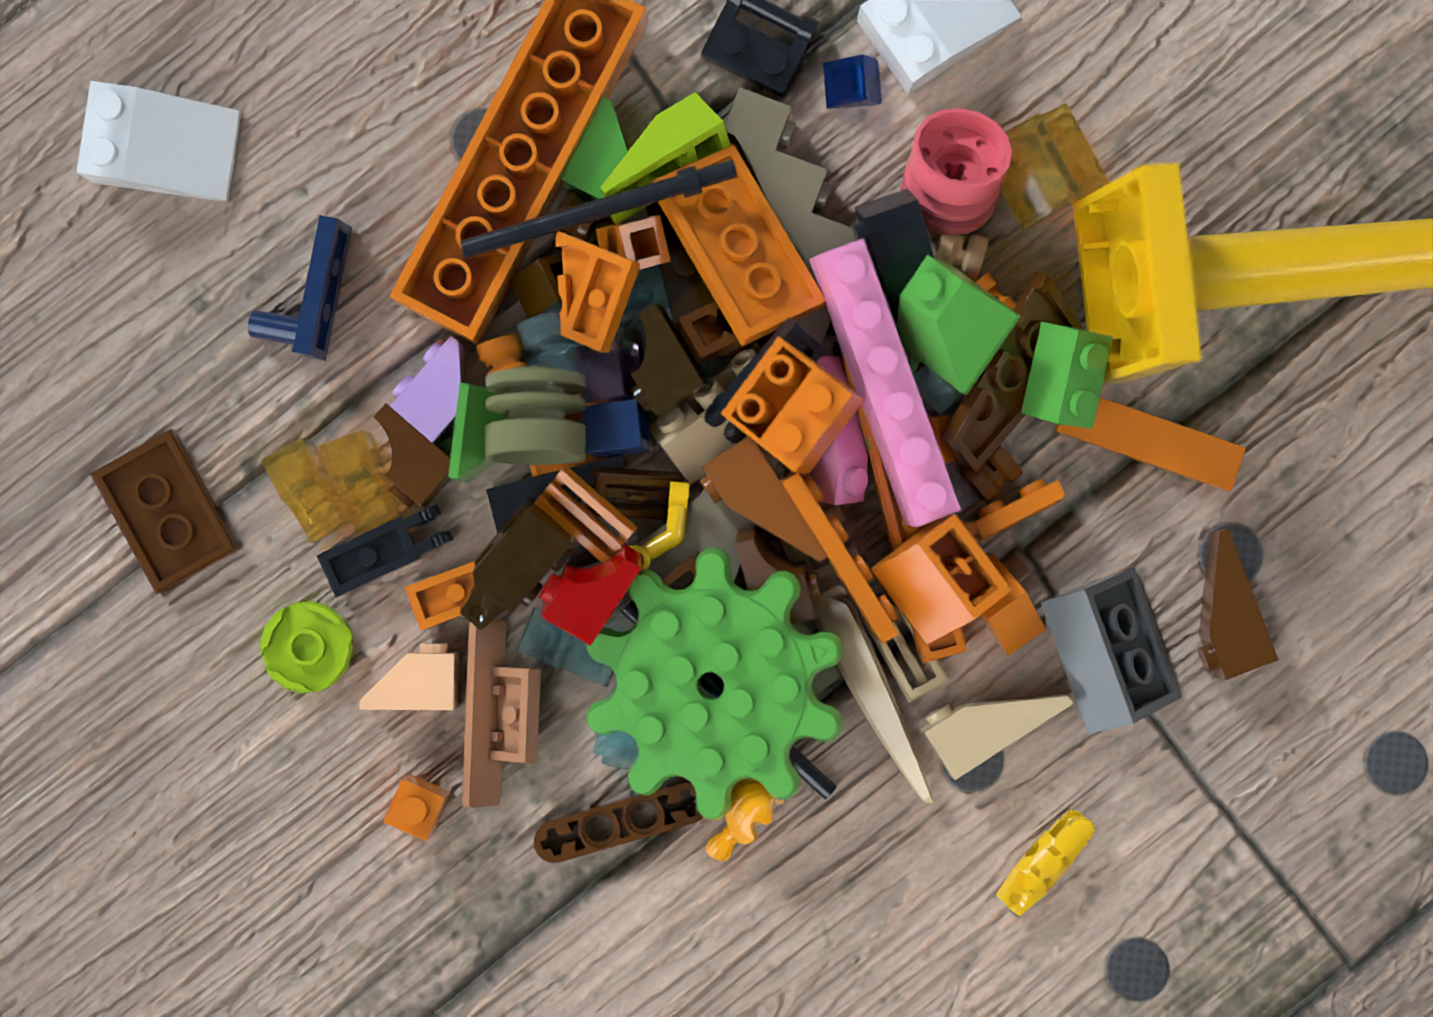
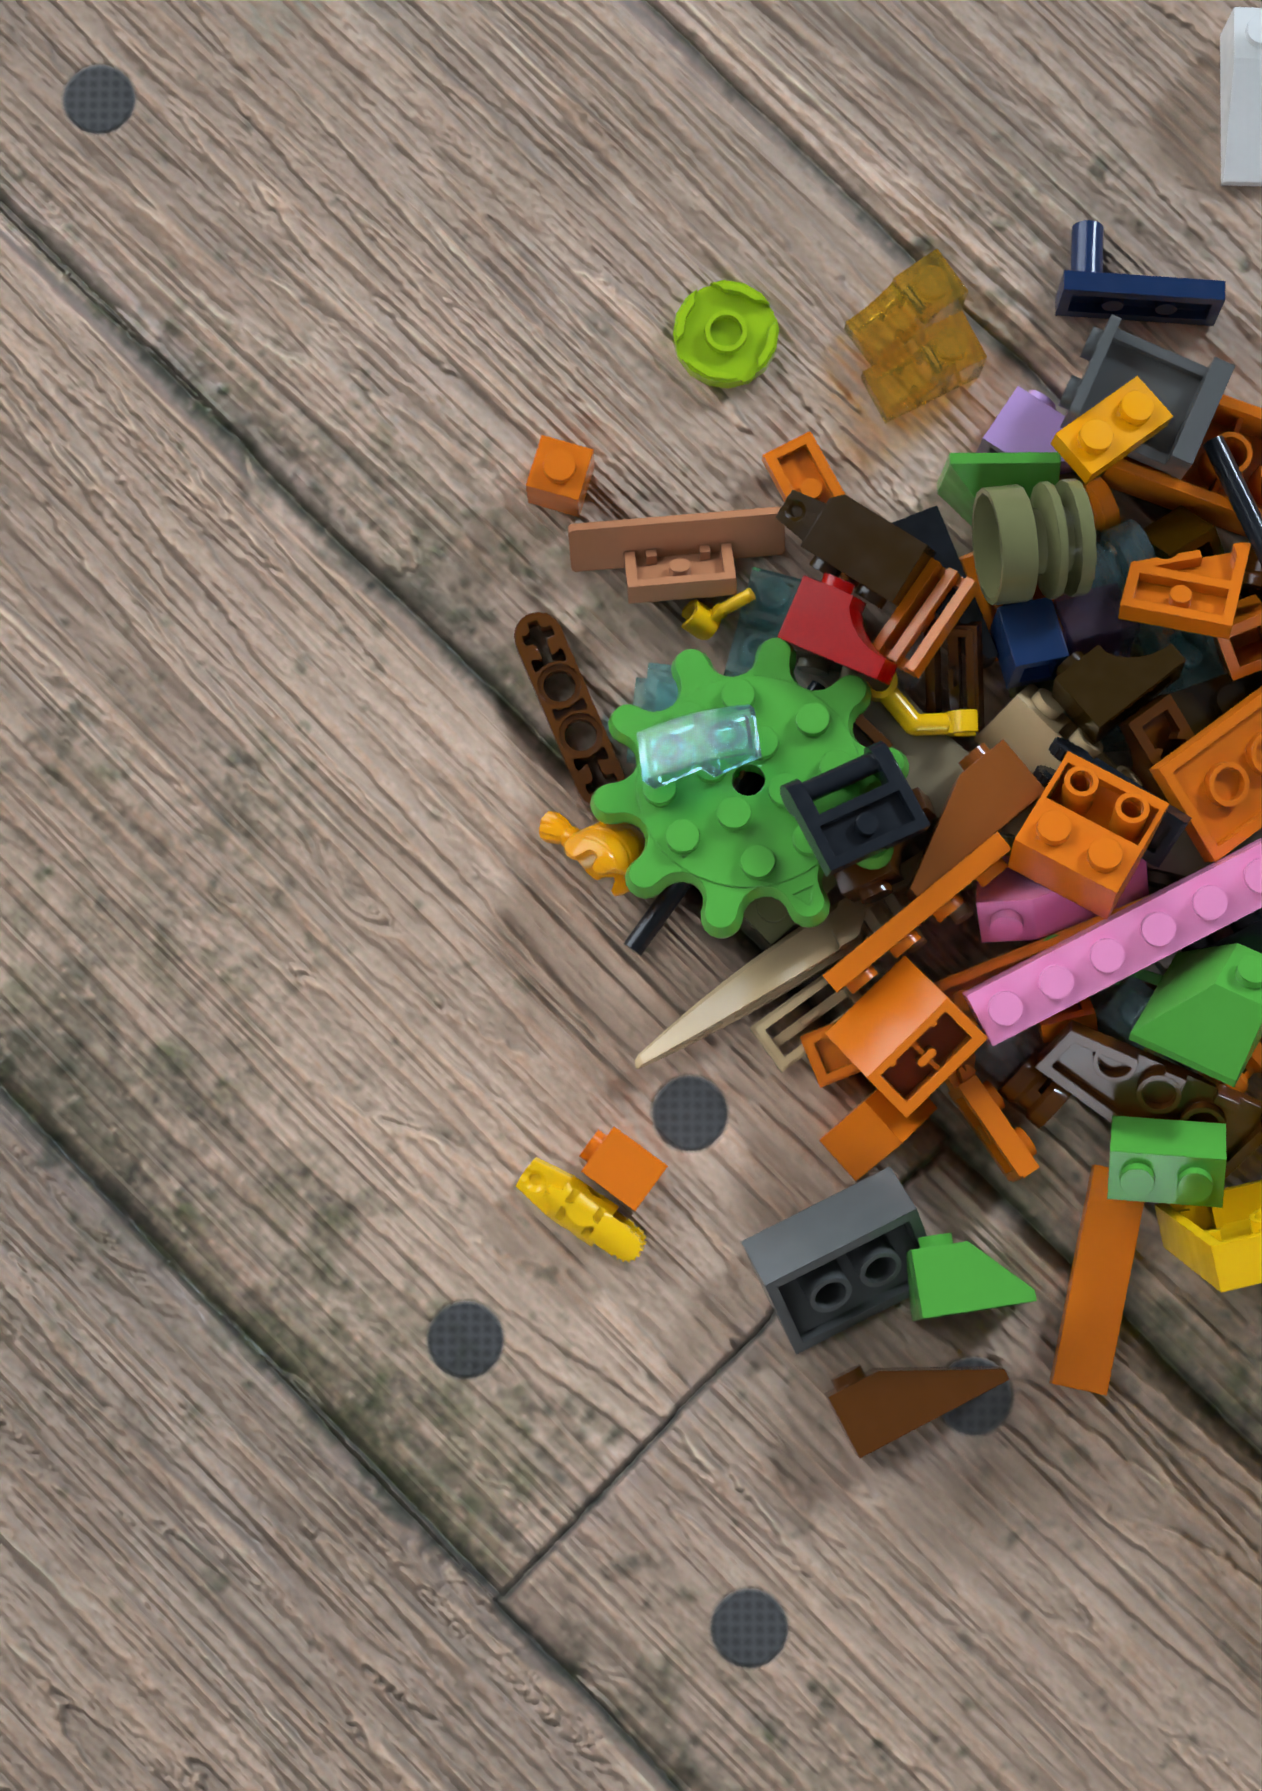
camera: 80 degrees right, 5 degrees down
(165, 511) = (859, 159): reddish brown tile -> none
(379, 552) = (846, 401): black hinge -> none
(417, 465) = (955, 422): reddish brown arch -> none
(418, 682) = (703, 460): light nougat slope -> none
(419, 304) = (1182, 386): none -> dark grey panel
(445, 336) = (1111, 429): none -> light orange plate
(558, 696) = (704, 622): none -> yellow hand
(676, 726) = (702, 740): none -> clear light blue slope
(766, 598) = (863, 823): none -> black plate
(979, 730) = (729, 1113): tan slope -> none
(1014, 824) = (621, 1166): none -> orange brick
(1147, 558) = (959, 1280): none -> bright green slope

